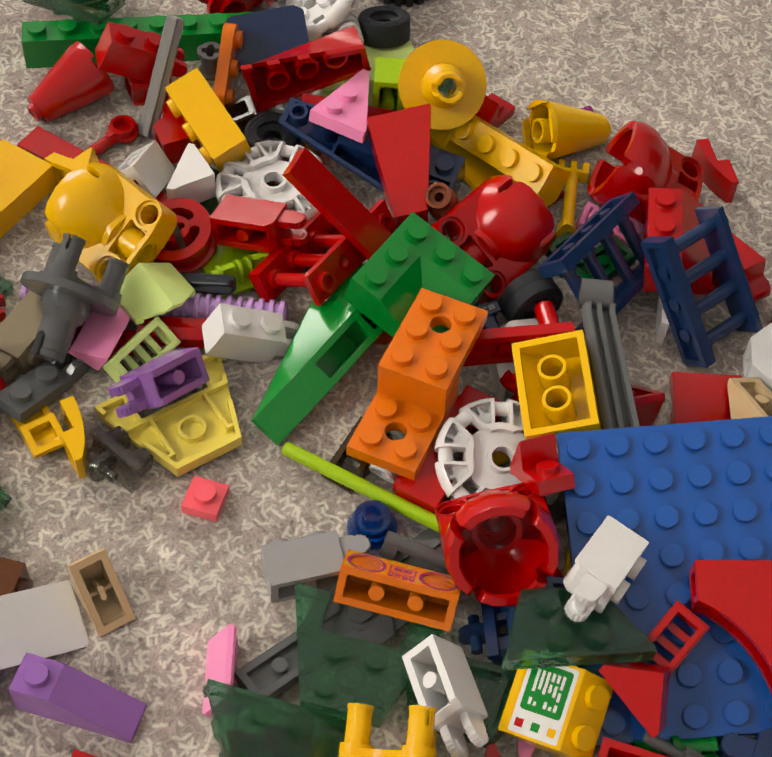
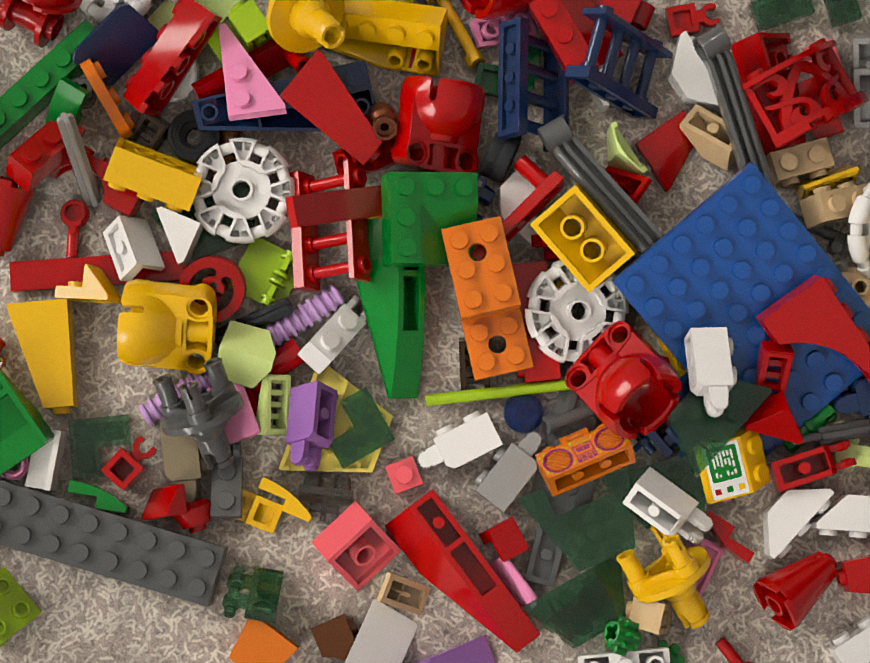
camera: 40 degrees left, 30 degrees up
(97, 518) = (356, 546): none -> coral slope
(178, 616) = (458, 569): none -> red wedge
(196, 48) = (67, 98): none -> green slope
(201, 432) = (369, 429): none -> clear green plate
(250, 615) = (506, 539): none -> red panel
(257, 224) = (265, 243): red hinge -> none
(283, 504) = (462, 443): none -> white hinge
(538, 467) = (621, 314): red slope -> none
(650, 368) = (620, 153): none -> yellowish green slope

